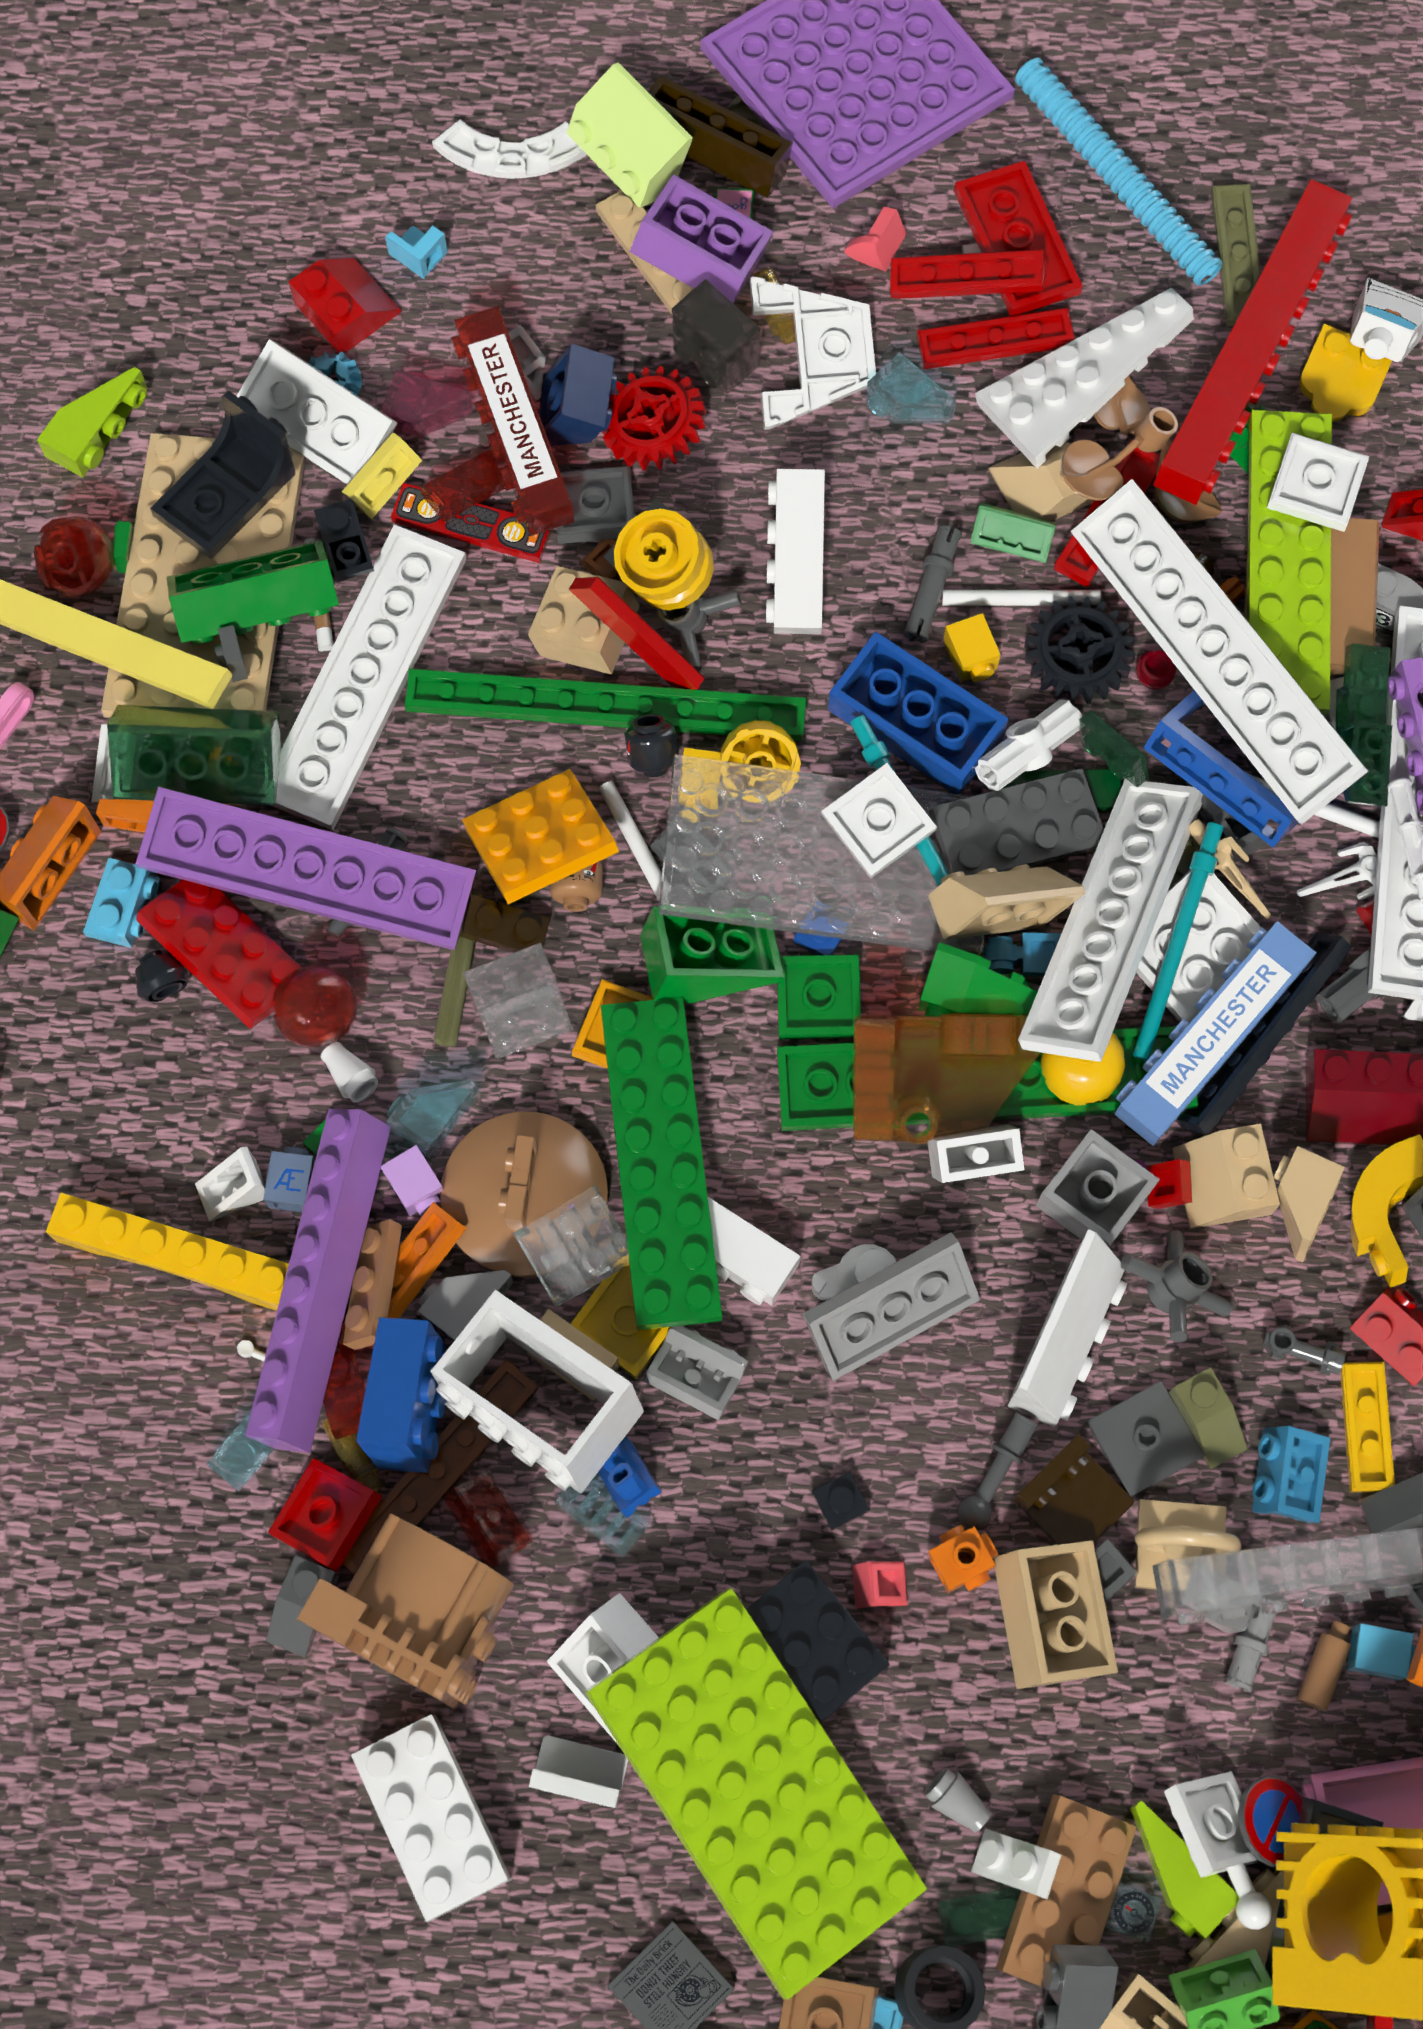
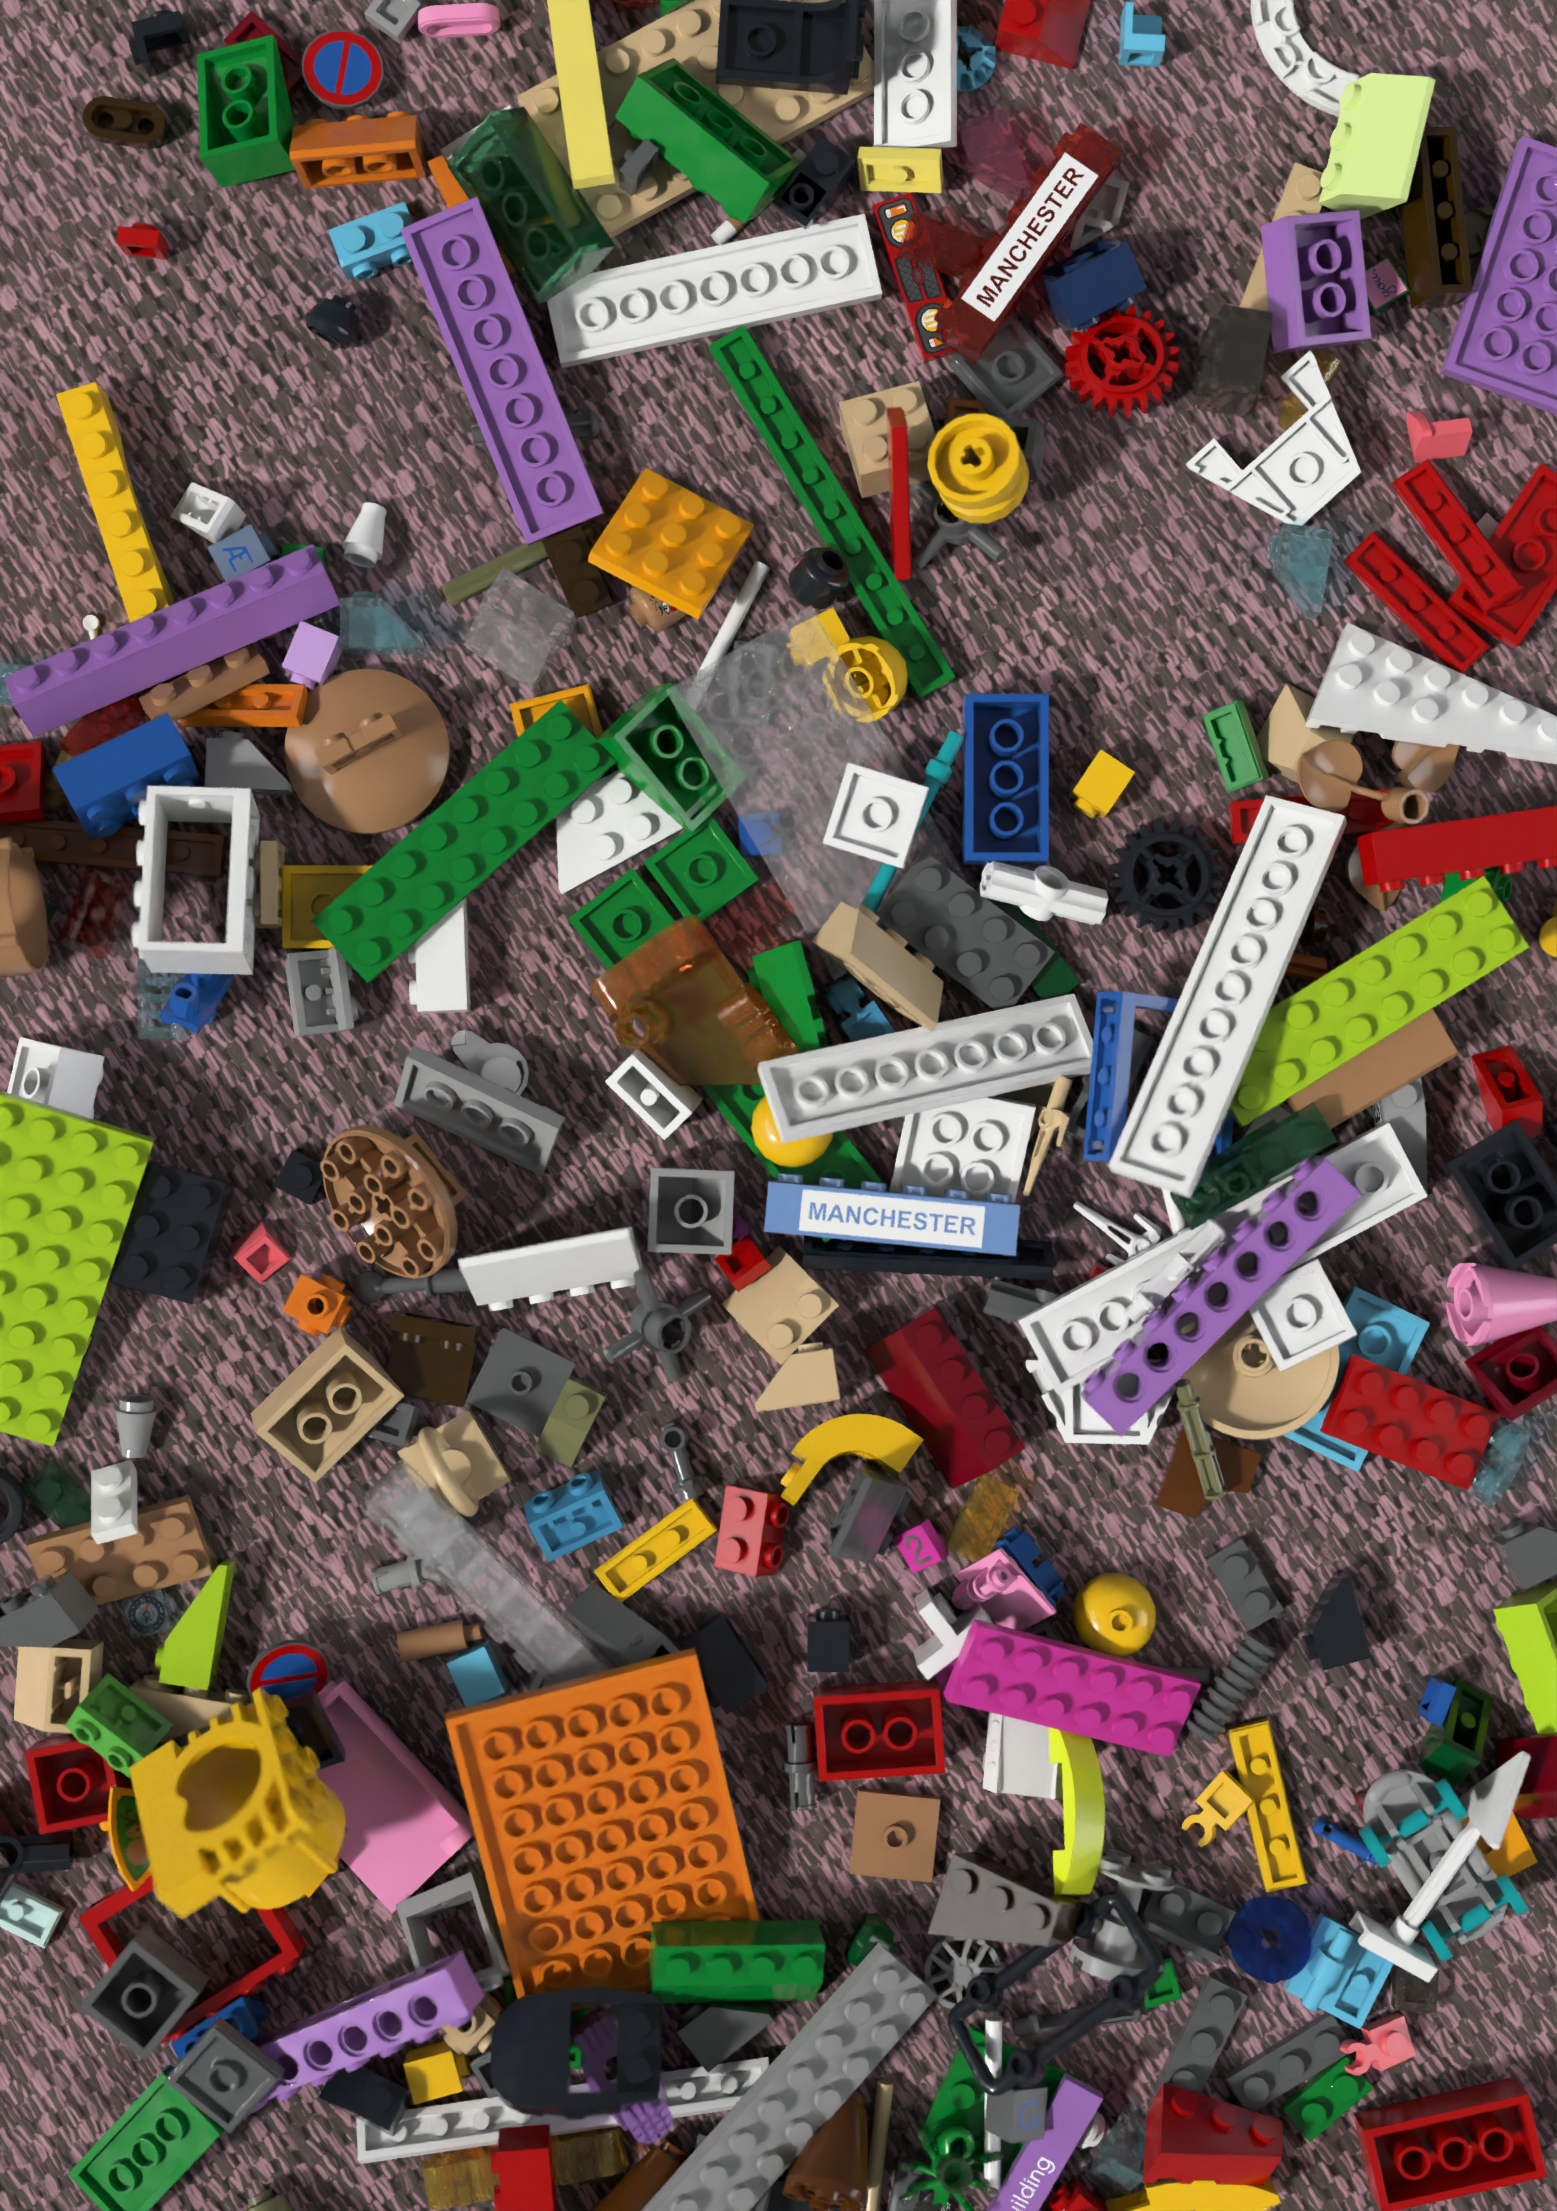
camera: 55 degrees right, 15 degrees up
(219, 947) = (391, 358): red plate -> none
(315, 1006) = (397, 467): clear red cylinder -> none
(574, 1246) = (342, 824): clear slope -> none
(729, 1047) = (607, 829): none -> white wing
(798, 551) = (1080, 575): white wedge -> none
(917, 1425) = (396, 1195): none -> medium nougat bracket
(937, 569) = (1155, 705): dark grey pin -> none
(1017, 597) = (1181, 793): white bar -> none
(1120, 755) = (1092, 950): clear green plate -> none
(1155, 670) = (1187, 950): dark red plate -> none
(1202, 866) = (1027, 1111): teal bar -> none
(1210, 1826) = (234, 1640): white plate -> none
(1318, 482) = (1449, 979): white tile -> none

